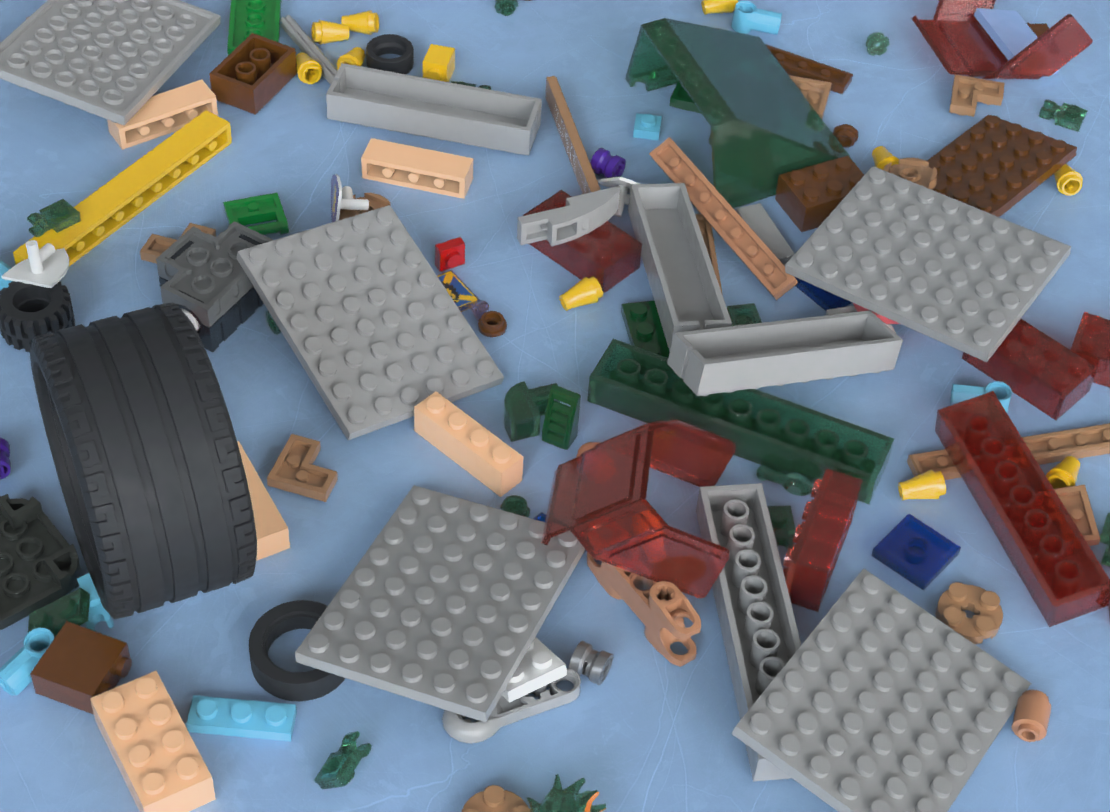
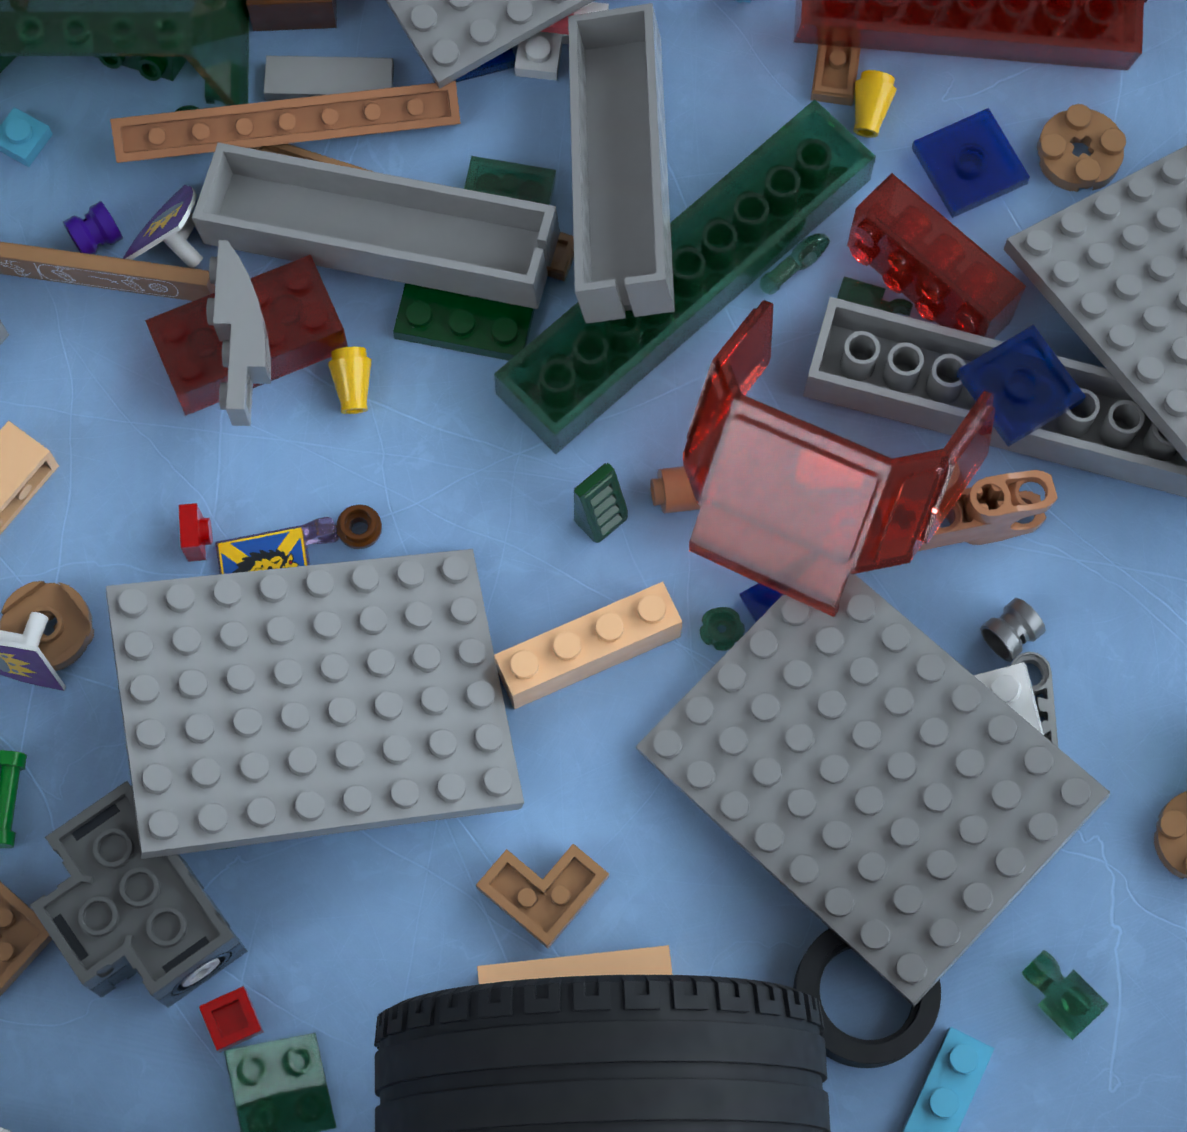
camera: 65 degrees left, 25 degrees up
(523, 410) = (546, 551): clear green brick -> none
(756, 593) = (1026, 384): none -> clear blue plate

